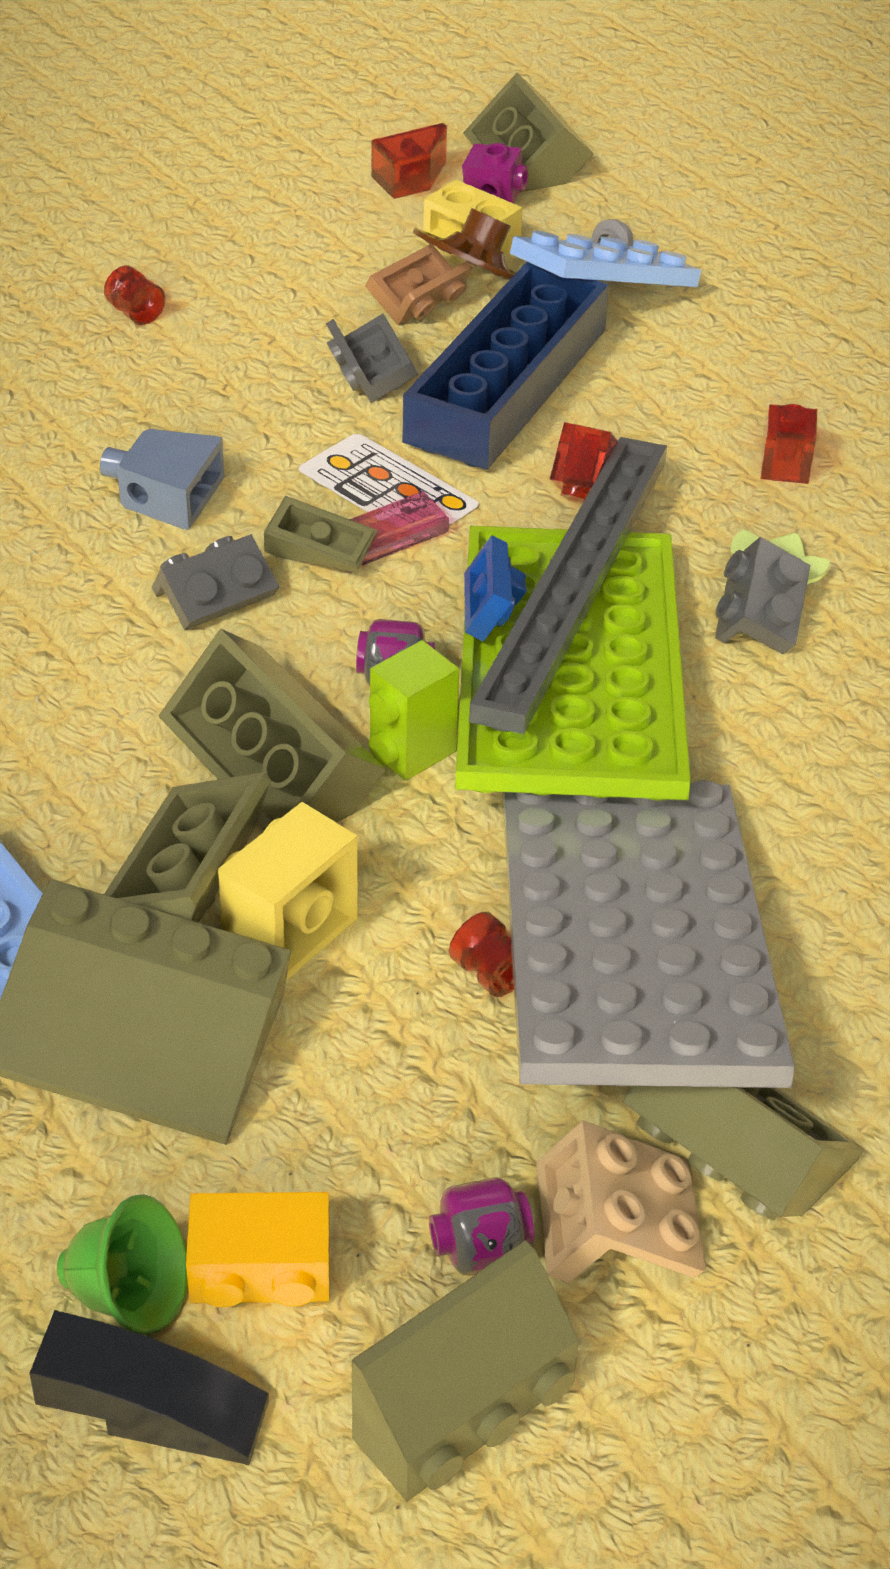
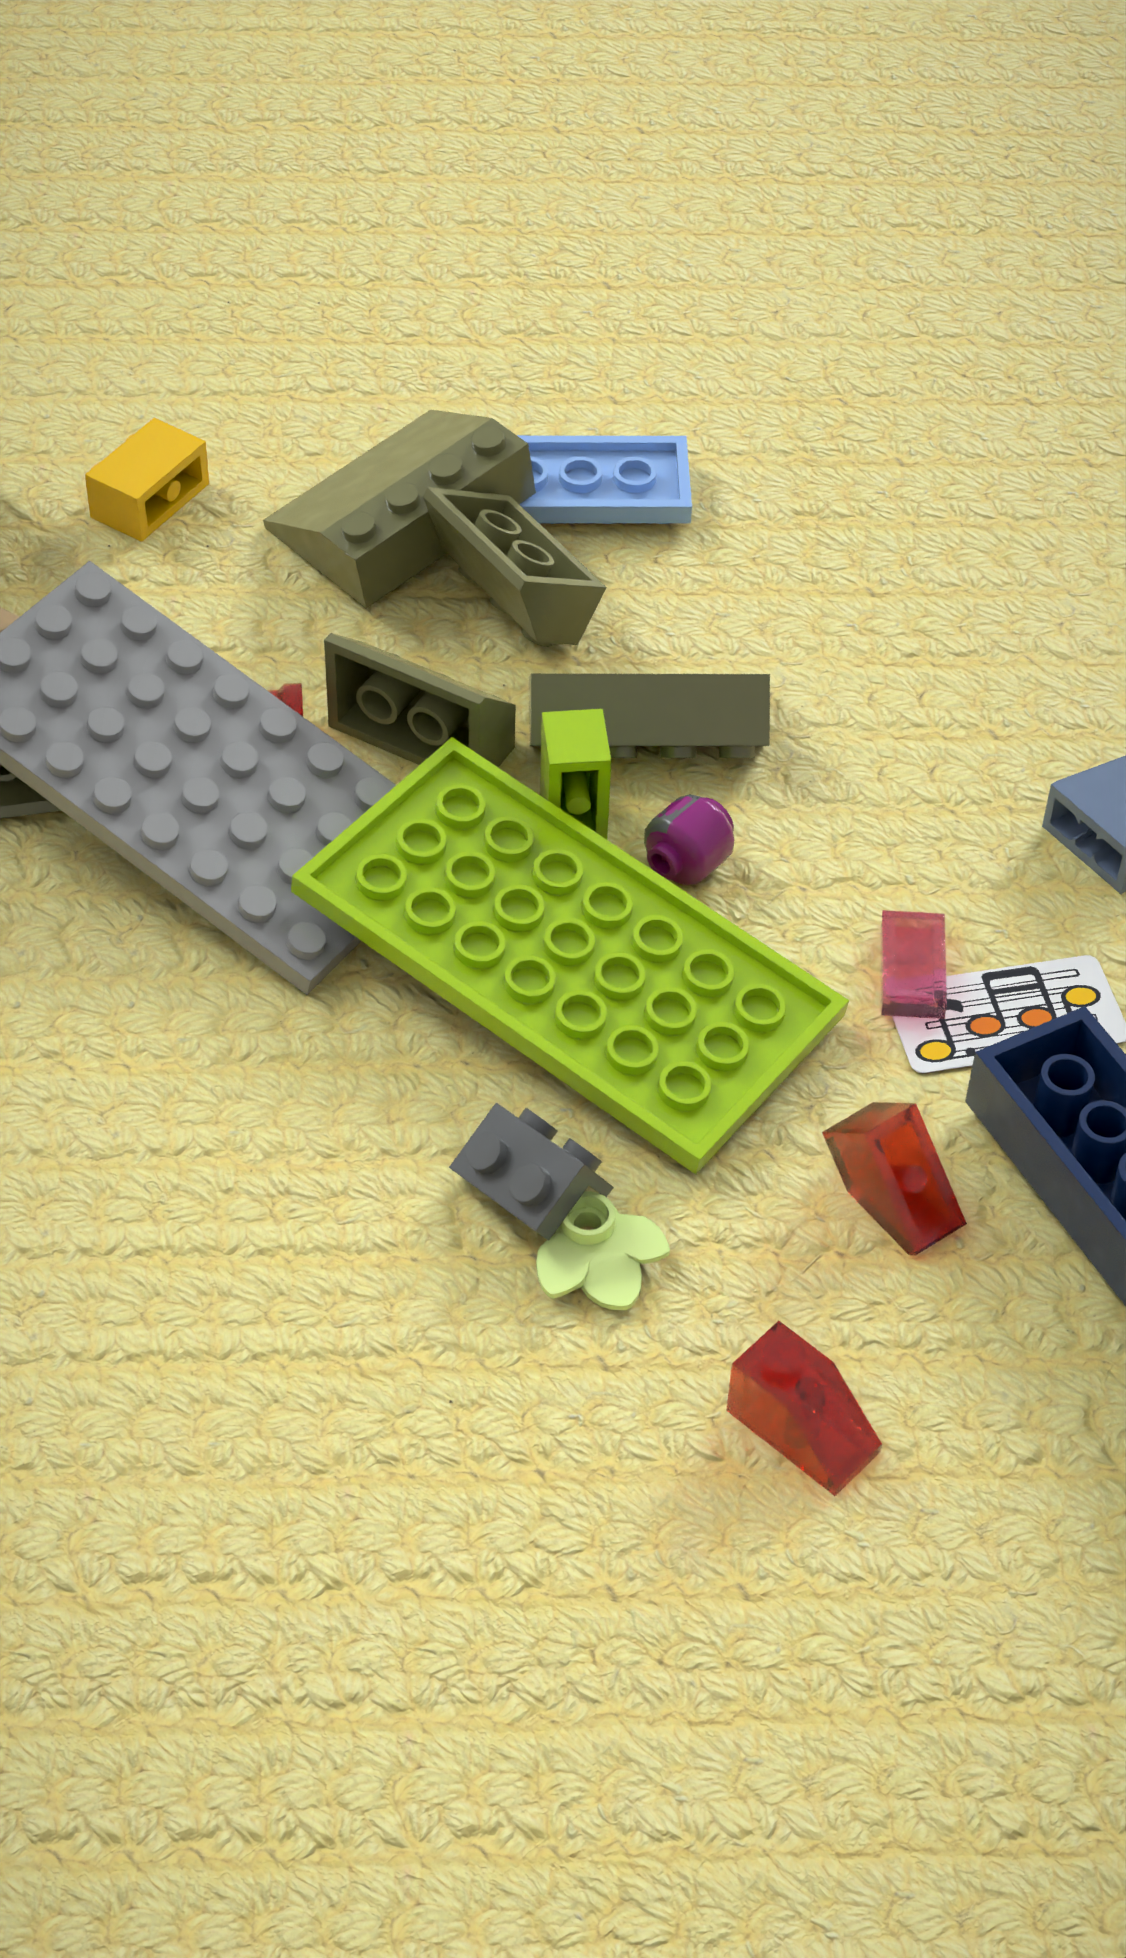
camera: 125 degrees right, 5 degrees up
(129, 1265) = (191, 396): bright green hat -> none
(146, 1389) = (102, 392): black slope -> none
(215, 581) = (916, 779): dark grey bracket -> none
(292, 885) = (430, 598): light yellow brick -> none
(317, 536) = (929, 879): olive slope -> none
(405, 851) = (410, 706): none -> olive slope
(480, 1223) = (39, 571): magenta head -> none
(491, 589) = (700, 909): blue hinge -> none
(567, 589) = (674, 1001): dark grey plate -> none

